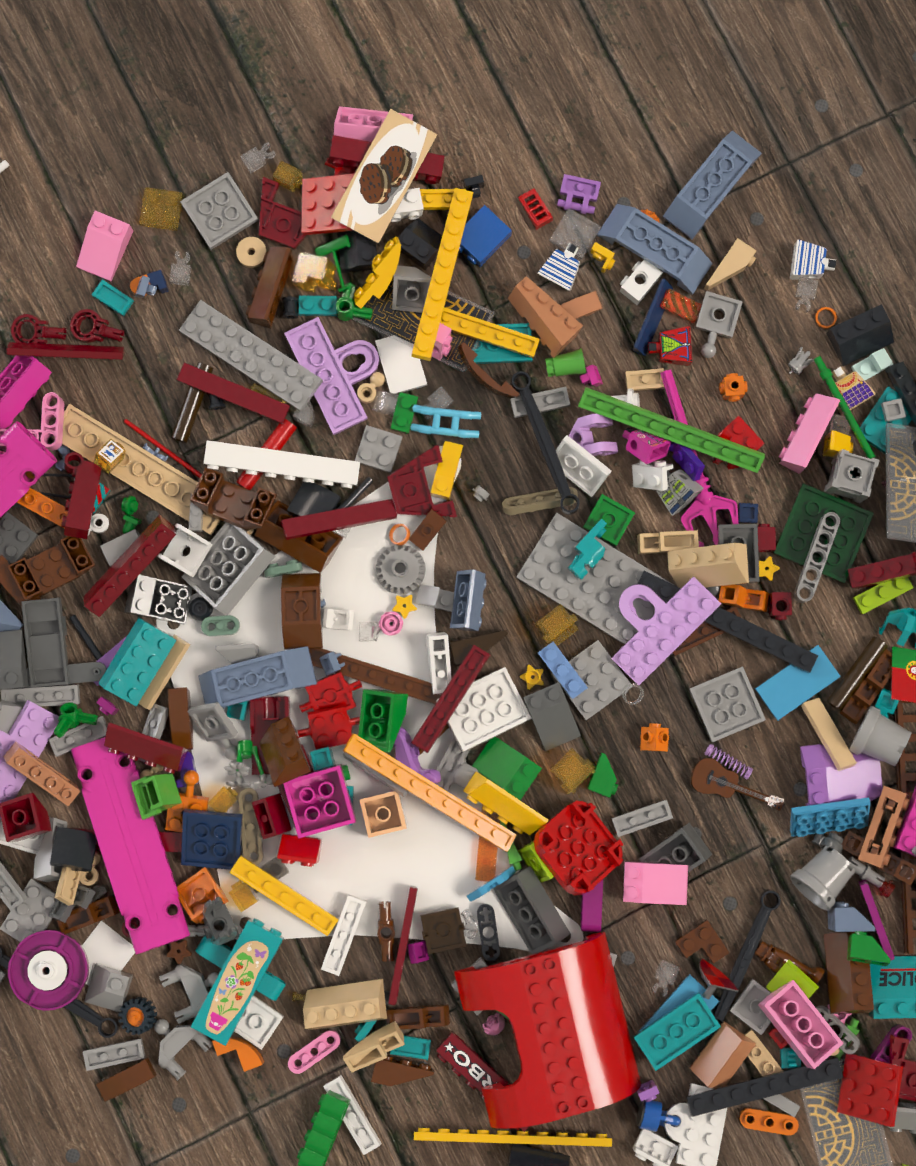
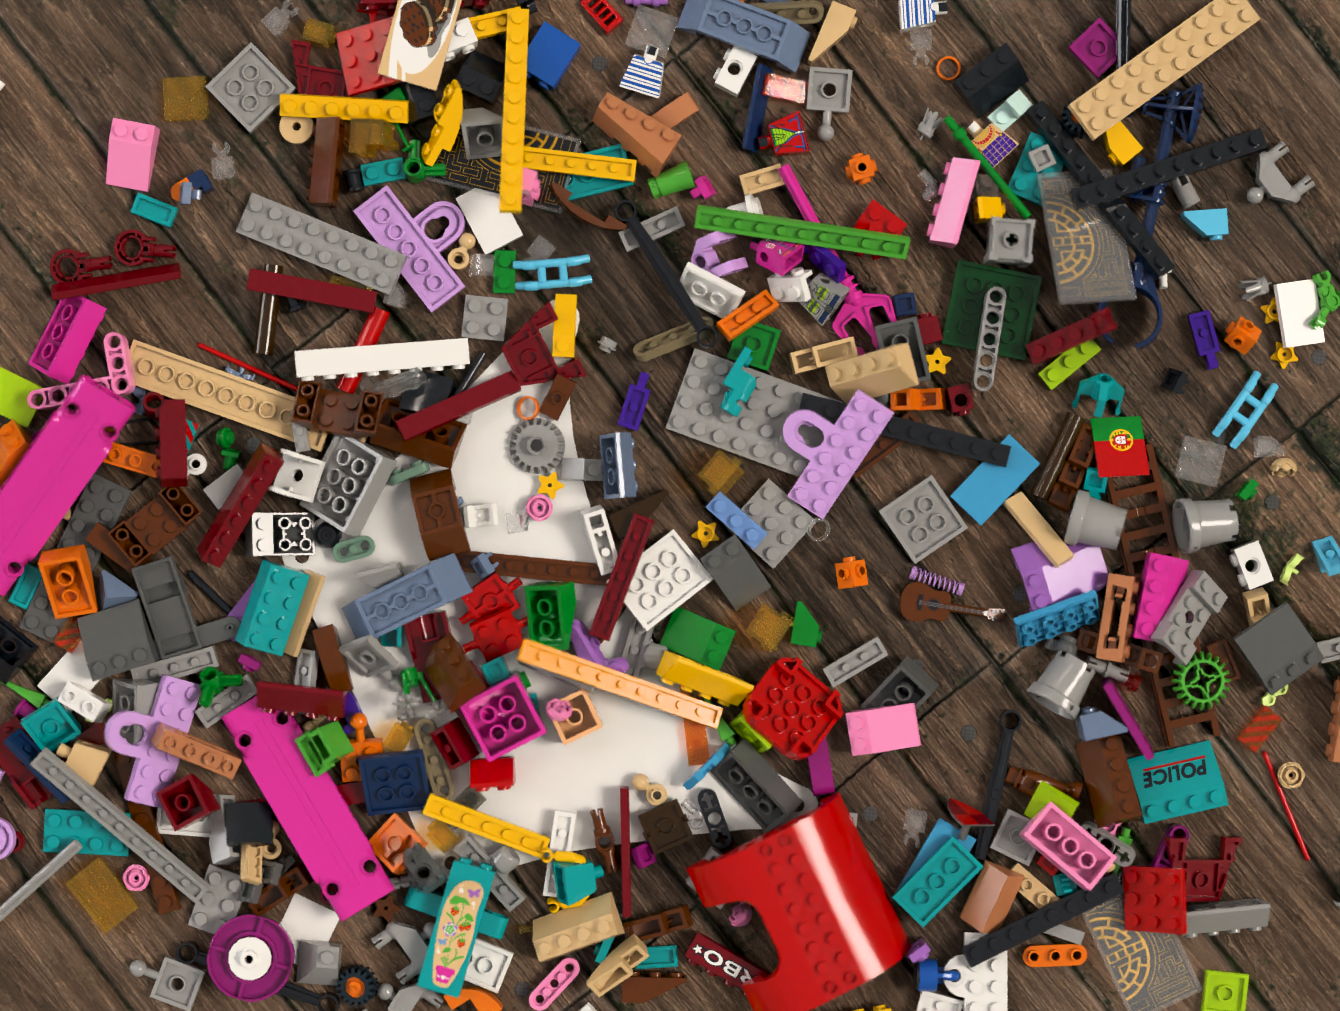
camera: 15 degrees left, 5 degrees up
(110, 456) = (191, 388): clear yellow brick -> none
(289, 489) = (395, 385): none -> clear plate
(292, 931) = (503, 861): none -> light grey plate
(298, 243) = (344, 107): none -> yellow plate
(351, 959) = (573, 879): none -> teal torso
(370, 805) = (558, 710): none -> bright pink plate
(430, 886) = (641, 782): none -> tan plate
(494, 550) = (635, 403): none -> dark purple plate
(603, 254) = (686, 48): yellow bracket -> none
(608, 493) = (747, 315): none -> orange plate
(702, 937) = (946, 774): reddish brown plate -> none
(704, 240) = (795, 10): none -> dark tan plate
(791, 414) = (930, 185): none -> clear arm
(866, 950) = (1121, 753): green slope -> none

